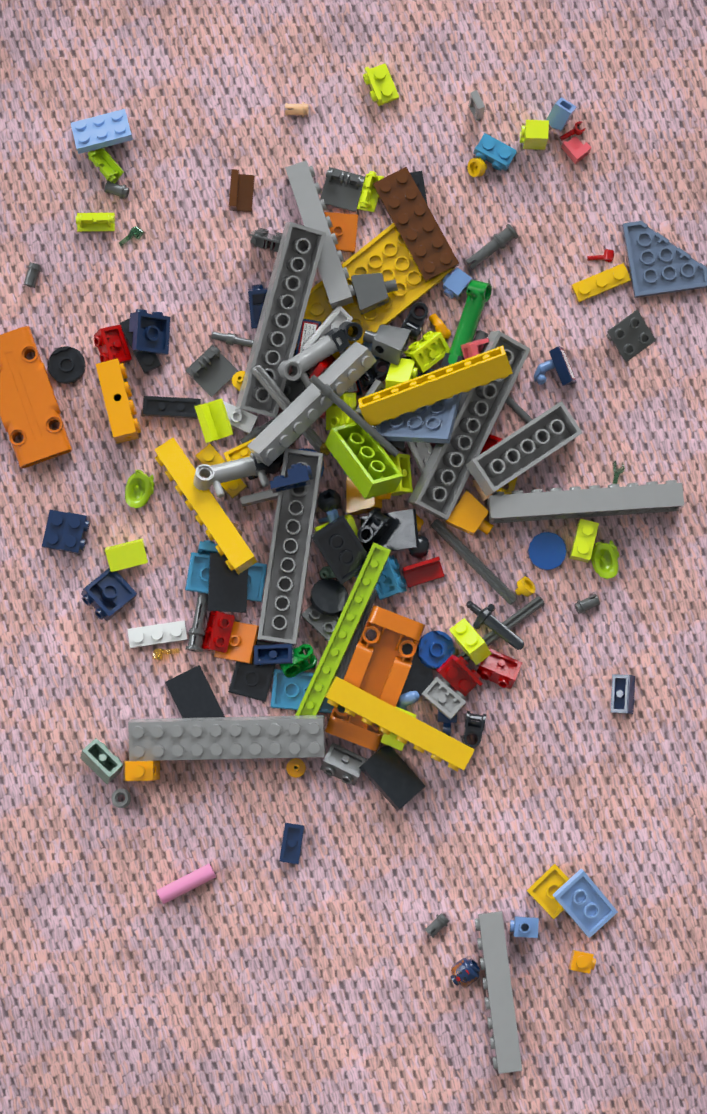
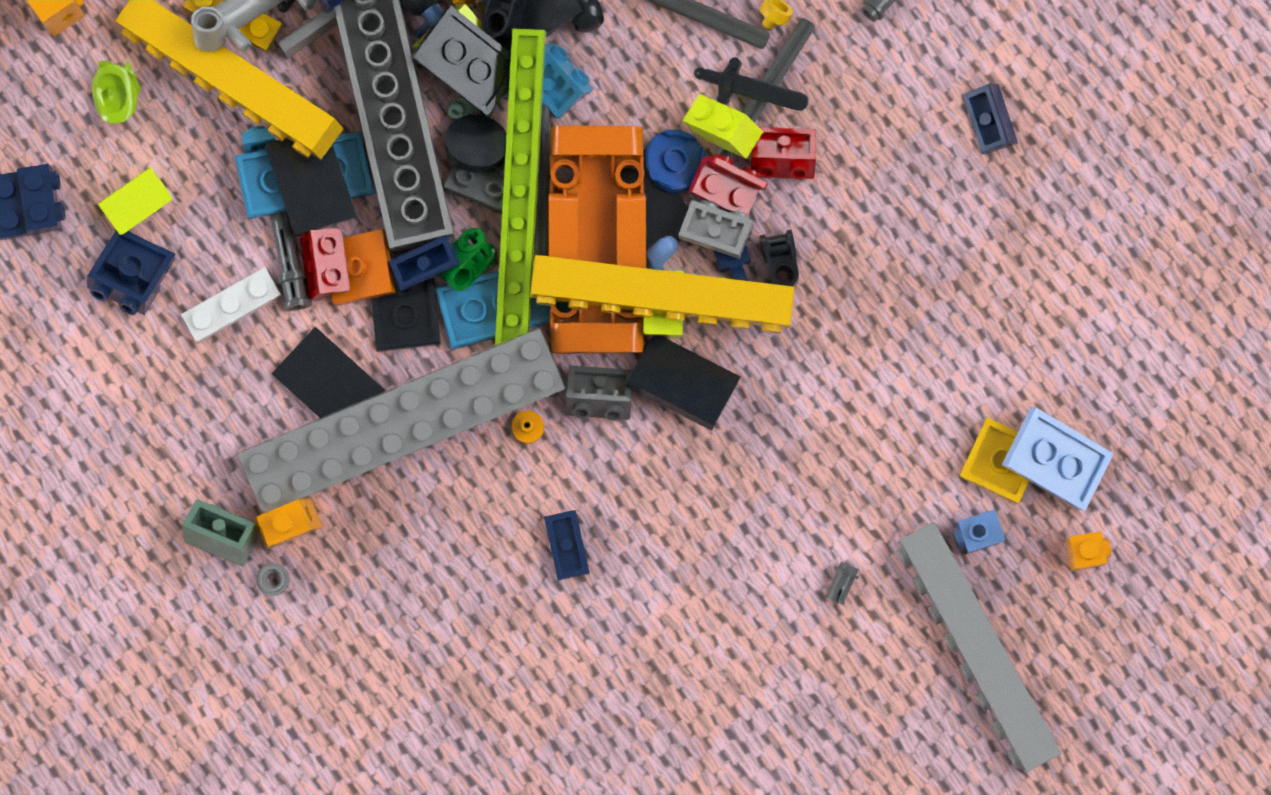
camera: 15 degrees left, 0 degrees up
(158, 653) = (244, 332): clear yellow hand -> none
(186, 883) = (426, 671): bright pink piece -> none
(423, 572) = (607, 49): red panel -> none
(465, 972) = (913, 638): dark blue head -> none

